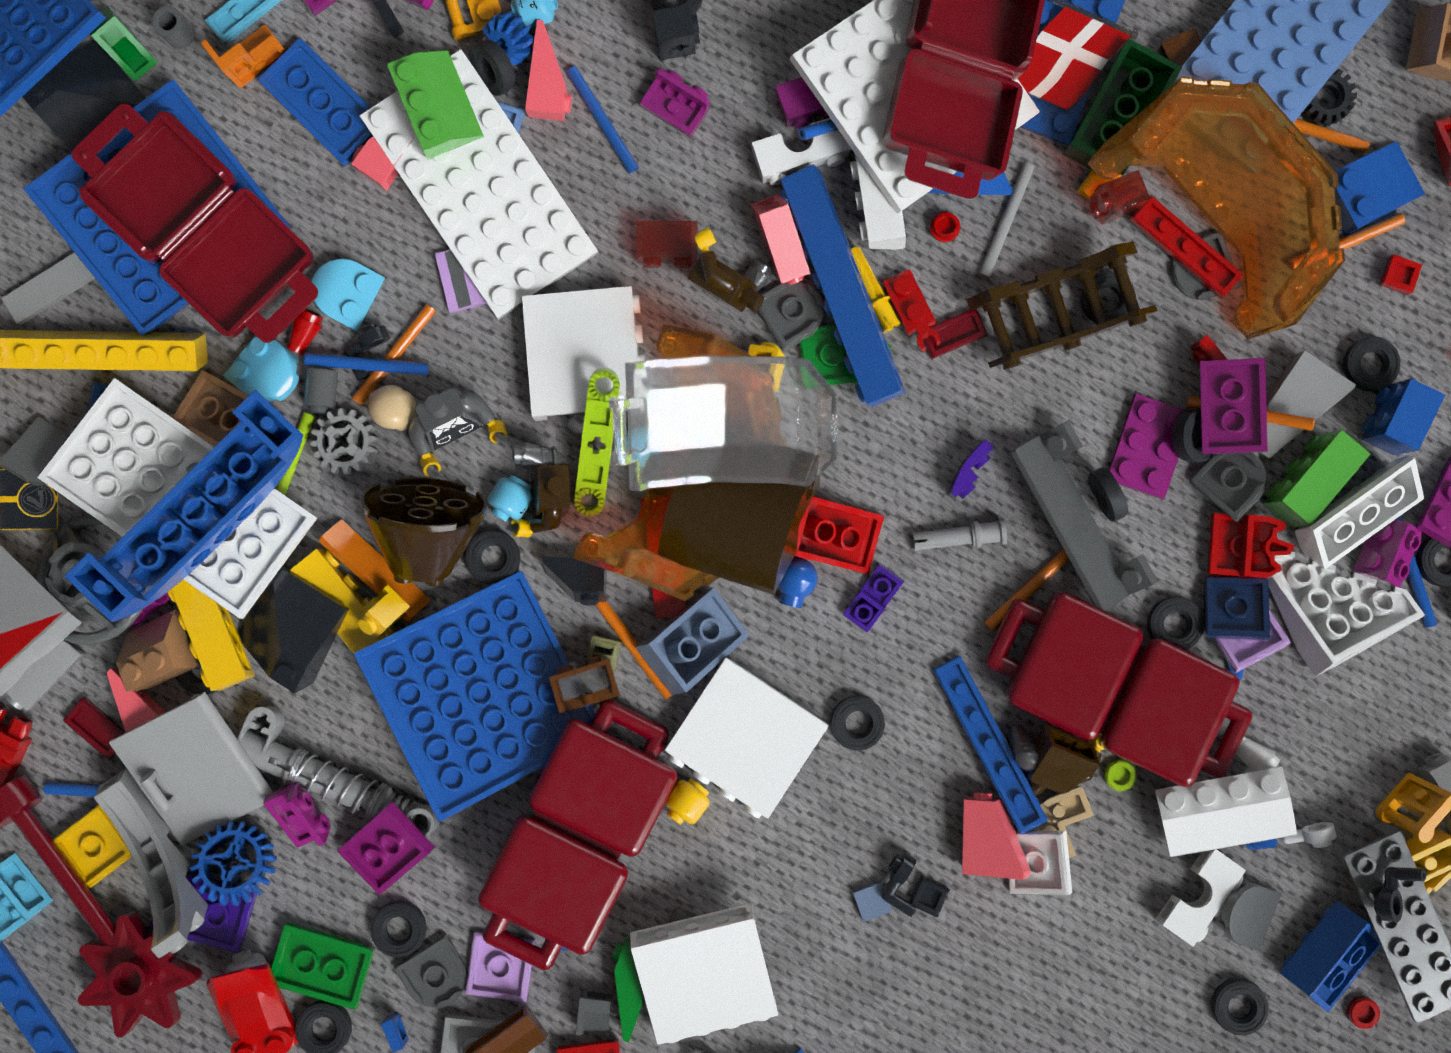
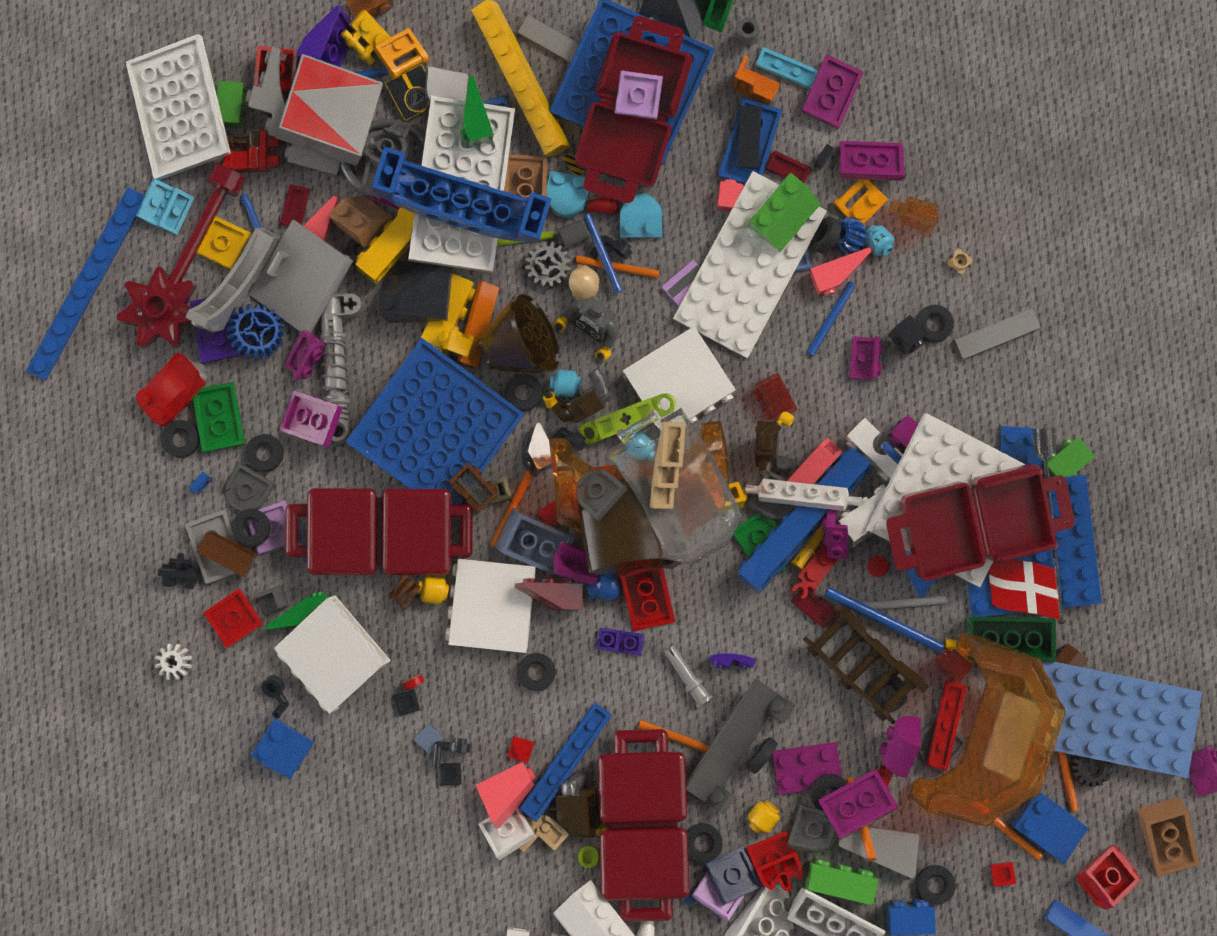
camera: 60 degrees right, 5 degrees down
(105, 438) = (476, 125): none -> green slope
(179, 206) = (638, 95): none -> lavender tile
(224, 343) = (570, 161): none -> sticker
(313, 97) = (749, 137): none -> black tile
(374, 74) = (782, 166): none -> dark red tile
(477, 1012) = (244, 516): none -> black tyre
(588, 521) = (575, 439): none -> black plate
(672, 841) = (403, 592): none -> reddish brown arm
(676, 528) = (599, 492): none -> dark grey tile
(688, 421) = (667, 464): none -> tan slope
(746, 608) = (572, 563): none -> magenta bracket
(776, 650) = (556, 596): none -> dark red slope
(791, 886) = (413, 682): none -> red tile
(811, 269) = (803, 494): none -> white plate
(811, 906) = (407, 702): none -> black tile
(886, 257) = (835, 537): none -> magenta bracket
(943, 792) = (520, 749): none -> red plate
(1016, 254) = (884, 619): none -> blue piece
(1183, 532) = (763, 817): none -> yellow head
(1190, 312) = (902, 745): none -> magenta brick

